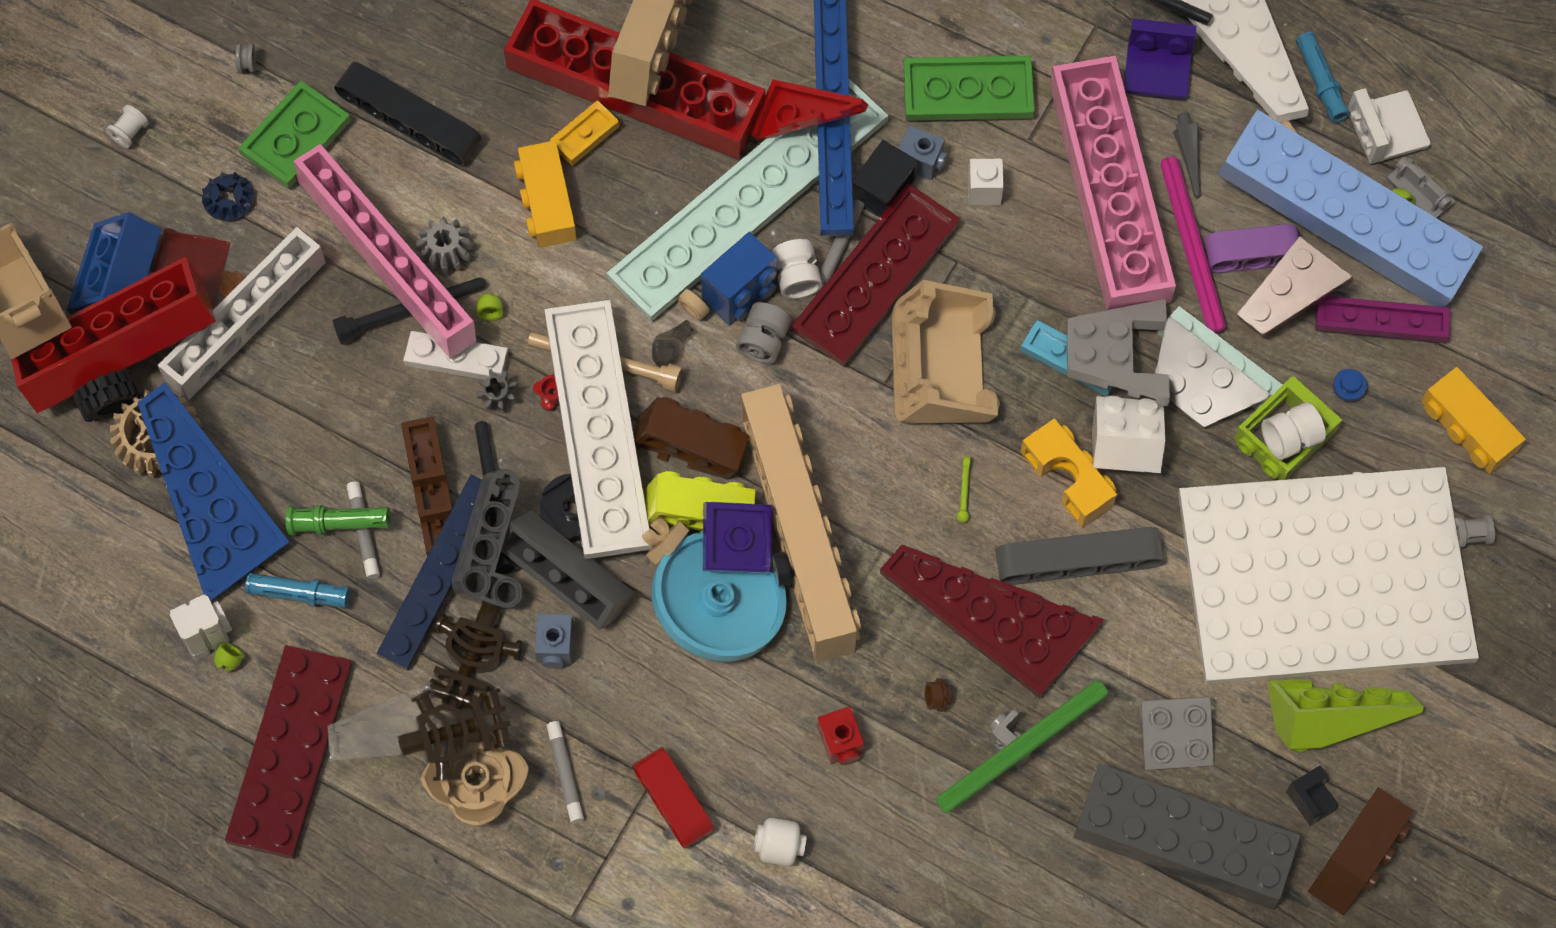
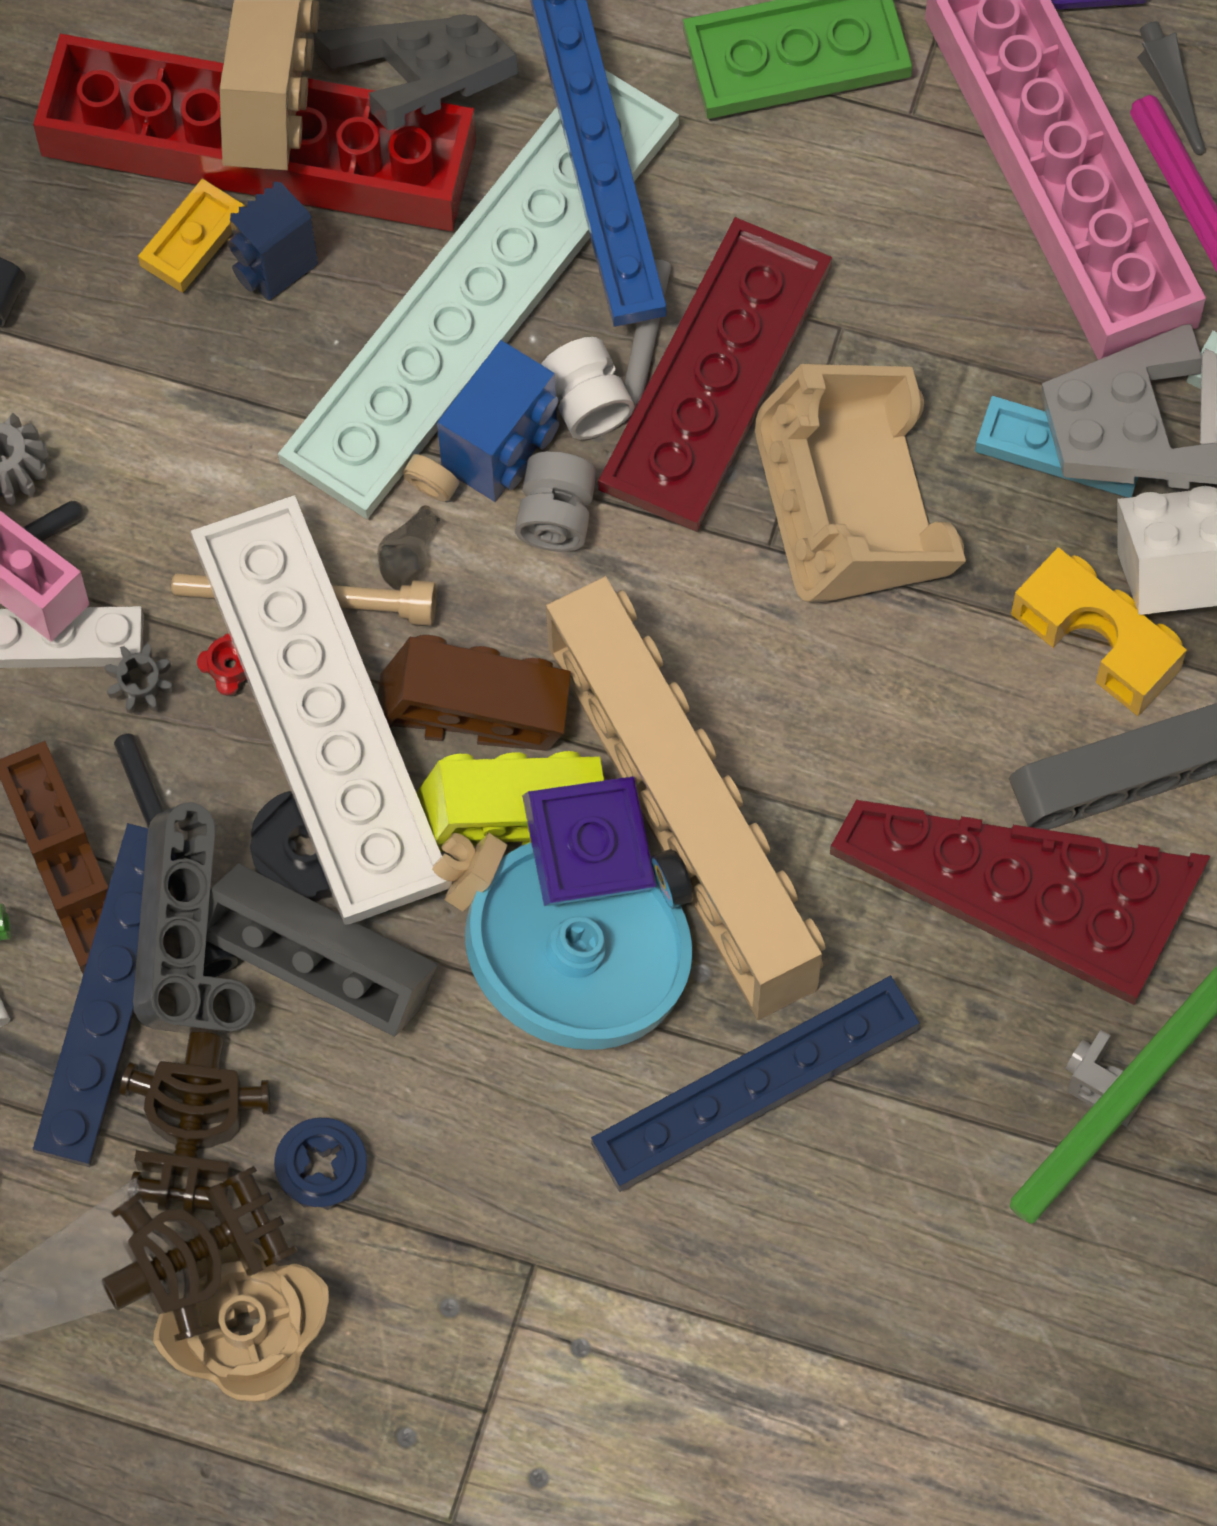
camera: 10 degrees left, 0 degrees up
(489, 307) = (97, 547): lime hinge -> none
(545, 194) = (150, 346): yellow brick -> none
(548, 681) = (325, 1137): none -> dark blue gear
(554, 640) = (322, 1068): sand blue brick -> none
(565, 772) = (387, 1282): light grey bar -> none
(629, 146) = (272, 241): none -> dark blue brick
(673, 797) = (575, 1288): red beam -> none
(747, 51) = (429, 54): none -> dark grey wing
(779, 841) = (766, 1325): white head -> none
(796, 107) = (531, 127): red wing -> none
(805, 699) = (754, 1083): none -> dark blue plate
(840, 736) = (827, 1132): red brick -> none
(884, 177) = (695, 215): black piece -> none
(926, 149) = (745, 165): sand blue brick -> none
(937, 695) = (969, 1032): reddish brown plate -> none
(962, 515) = (942, 733): lime hinge -> none
(985, 182) = (859, 191): white brick -> none

